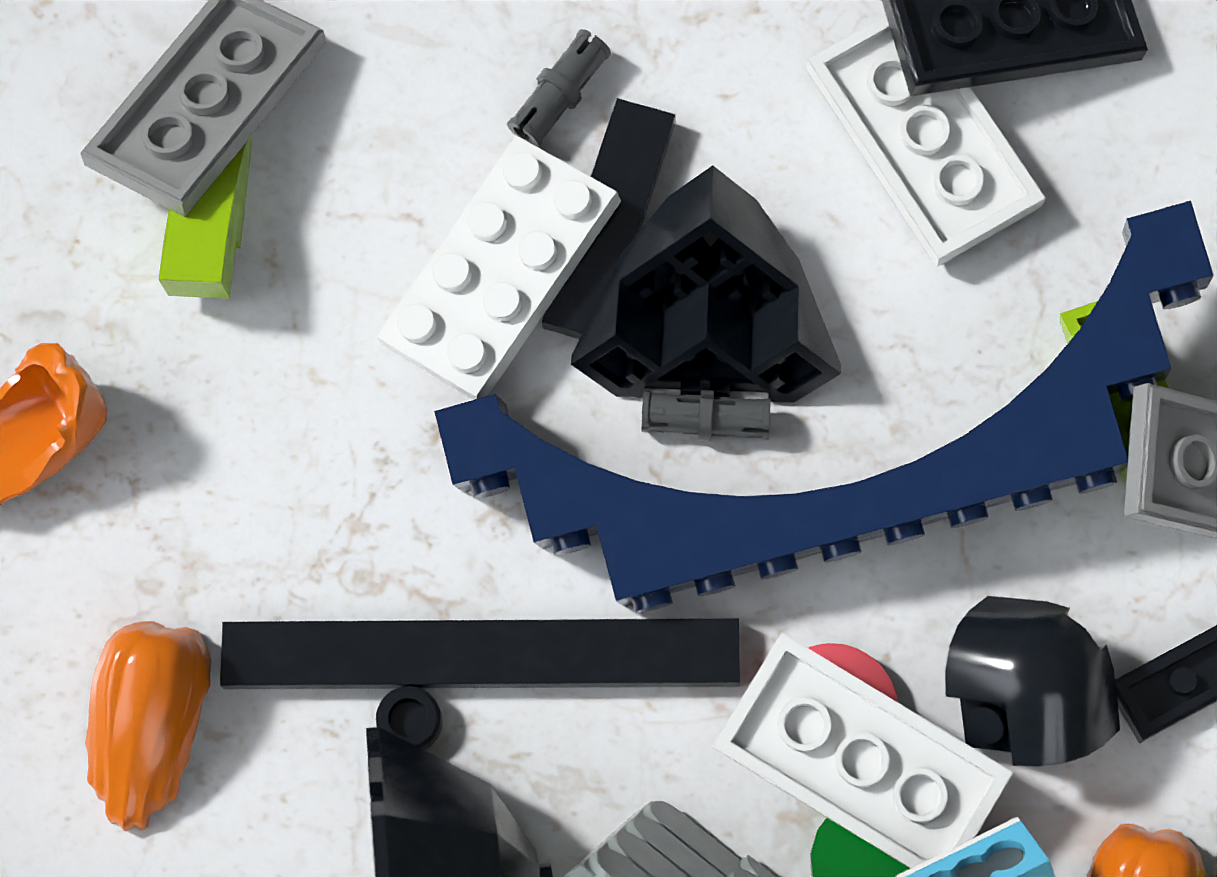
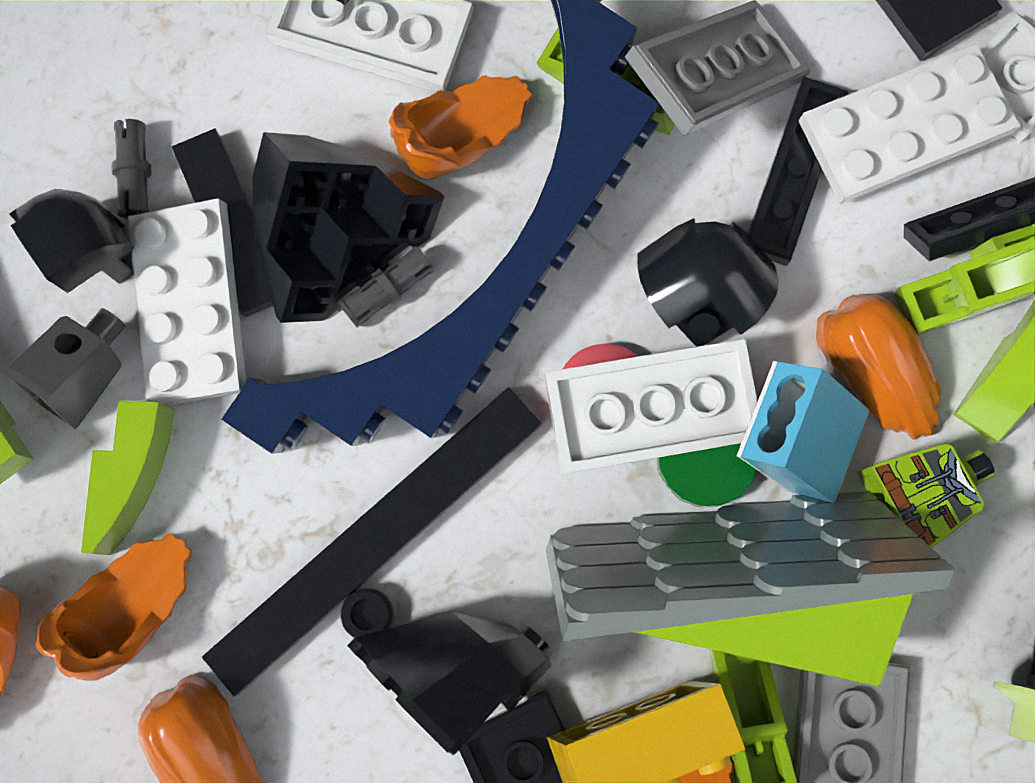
camera: 45 degrees left, 5 degrees up
(188, 508) = (116, 610): none -> orange hair
(301, 387) = (126, 476): none -> lime slope
(339, 239) = (70, 365): none -> dark grey torso
(446, 117) = (72, 238): none -> black brick
(920, 313) = (458, 125): none -> orange hair

